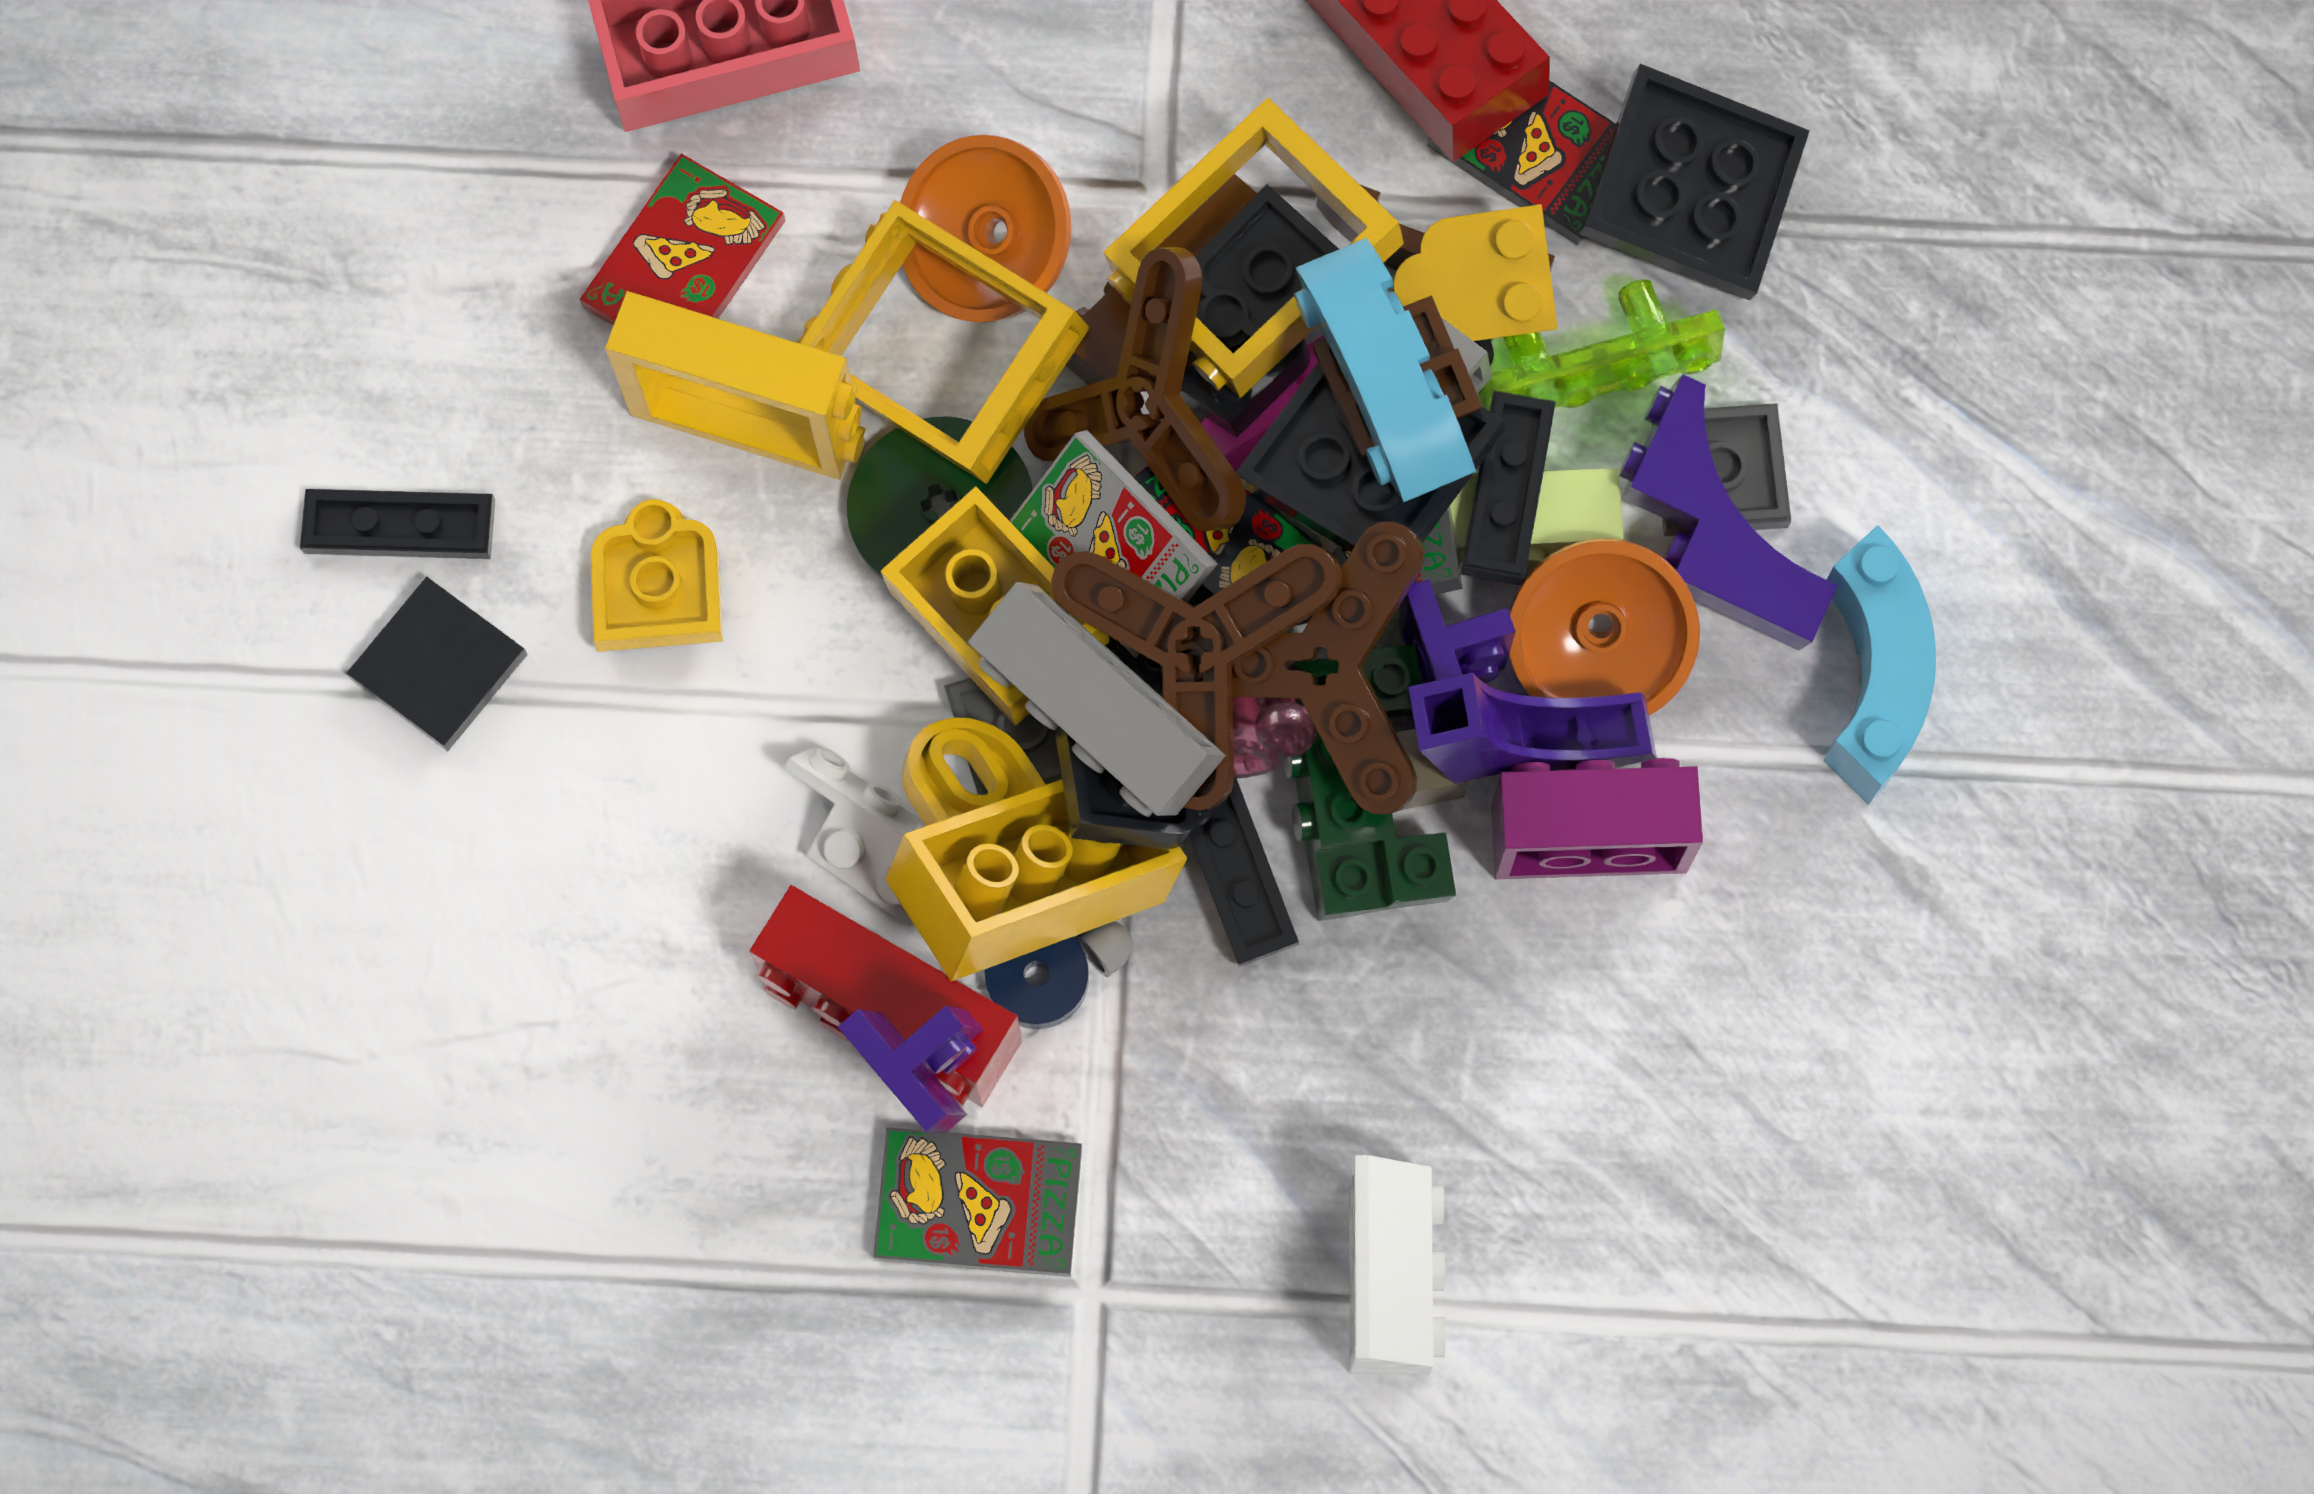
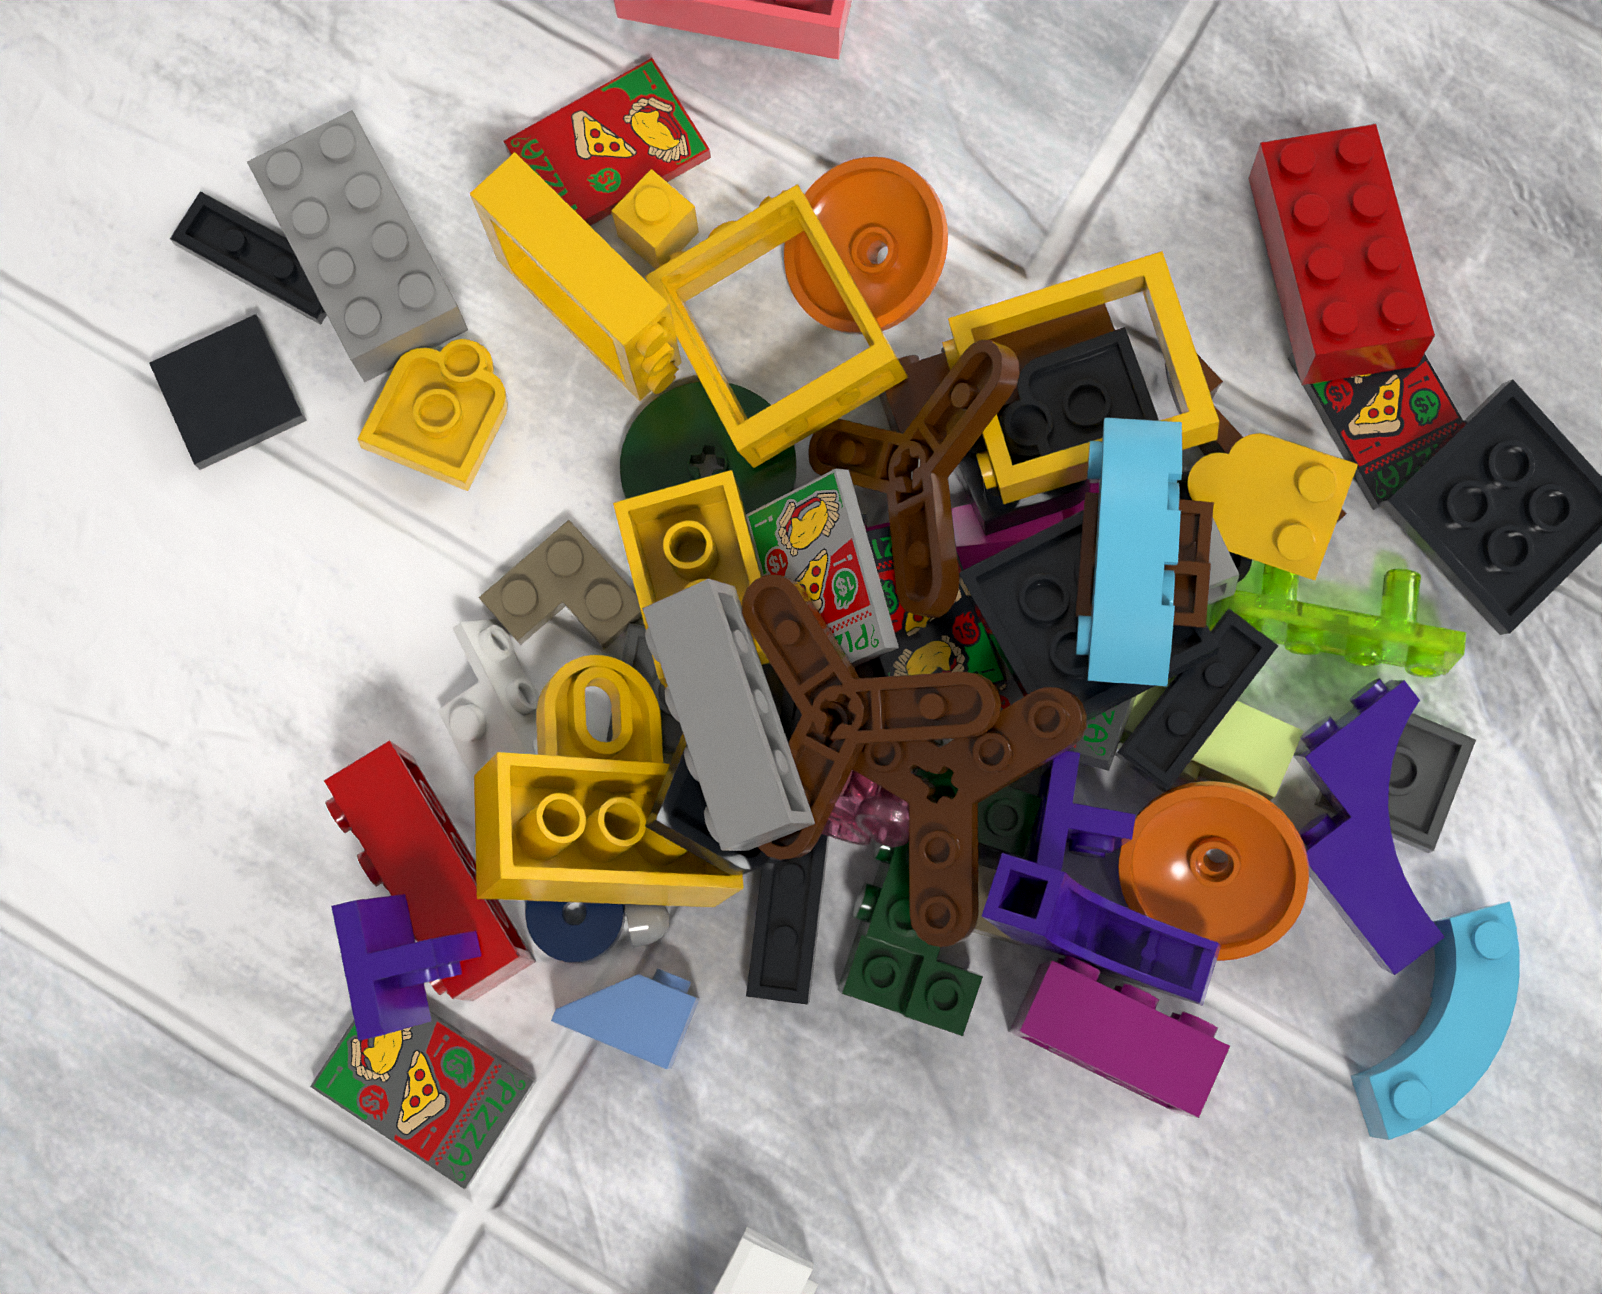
camera: 30 degrees right, 5 degrees up
(494, 462) = (357, 245): none -> light grey brick
(770, 297) = (655, 220): none -> yellow brick
(861, 671) = (560, 575): none -> dark tan plate
(1144, 1036) = (636, 1016): none -> medium blue slope

